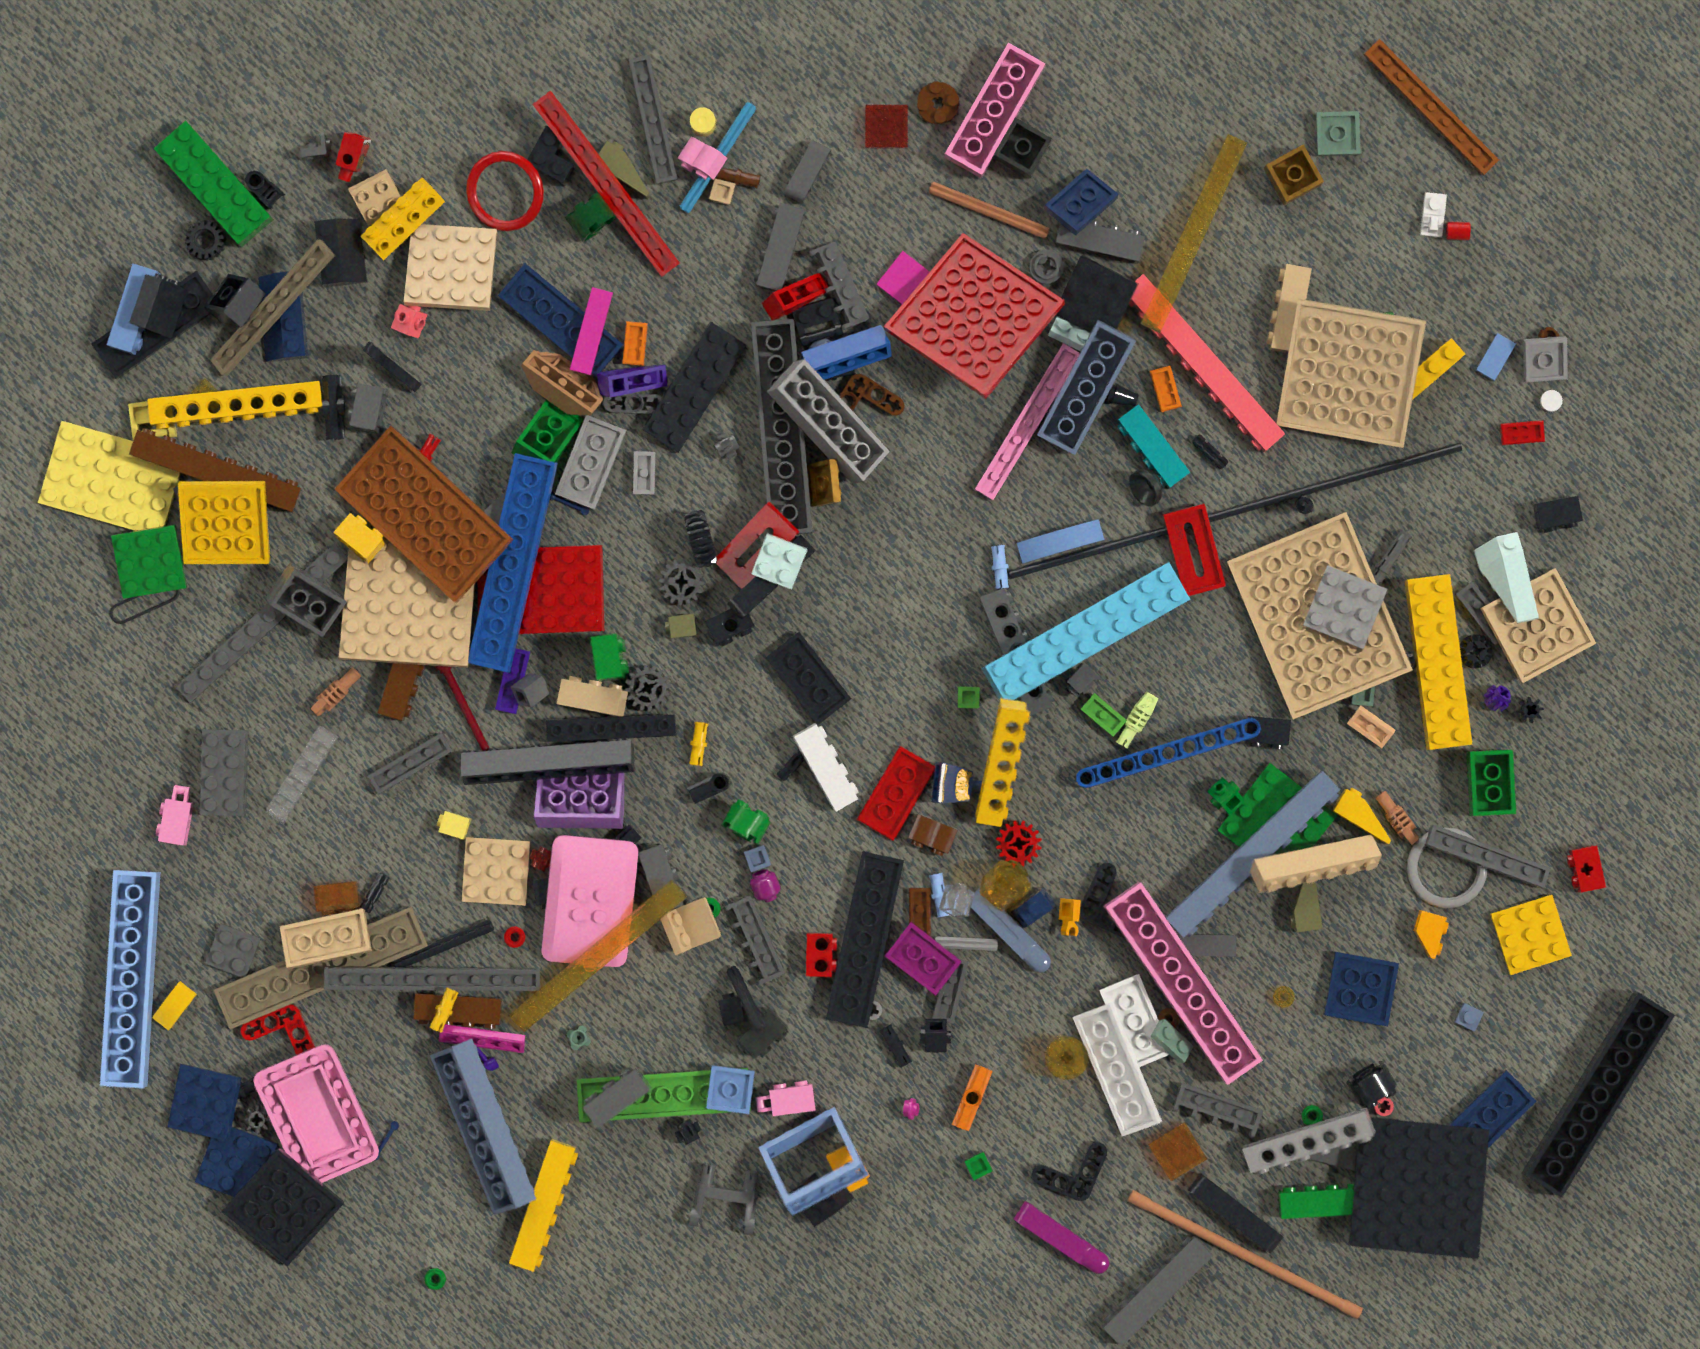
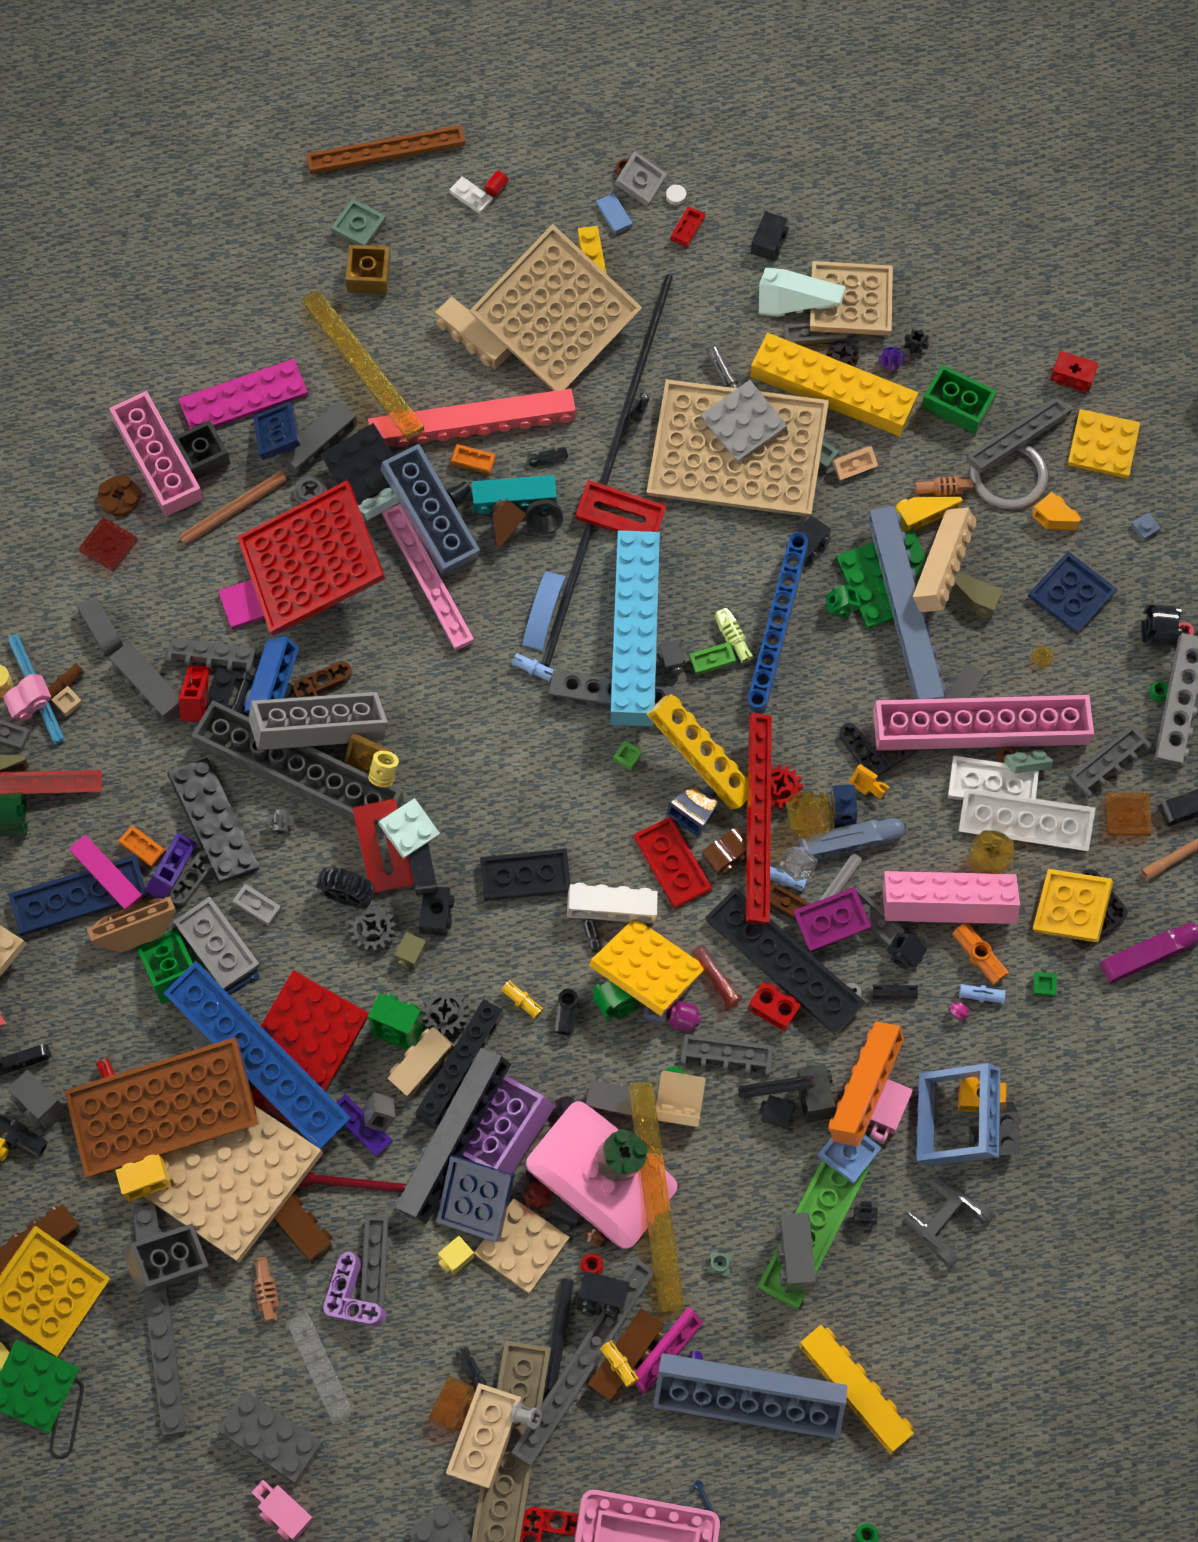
camera: 60 degrees left, 20 degrees down
(357, 963) = (525, 1415): none -> light grey bush
(363, 761) = (346, 1303): none -> medium lavender beam
(490, 963) = (602, 1293): none -> black brick
(505, 813) = (475, 1198): none -> dark blue plate
(536, 925) = (594, 1236): none -> reddish brown plate
(597, 905) = (625, 1144): none -> dark green brick
(785, 832) = (647, 966): none -> yellow plate
(795, 1070) = (866, 1083): none -> orange brick
(812, 900) = (721, 984): none -> clear red pin
(818, 505) = (382, 771): none -> light yellow piece
(944, 1132) = (982, 993): none -> light blue pin
(974, 845) = (759, 819): none -> red plate
(1004, 1046) = (951, 897): none -> bright pink brick
(1061, 1151) = (1073, 905): none -> yellow plate
(1101, 146) = (245, 395): none -> dark pink plate
(1120, 458) = (505, 520): none -> reddish brown slope

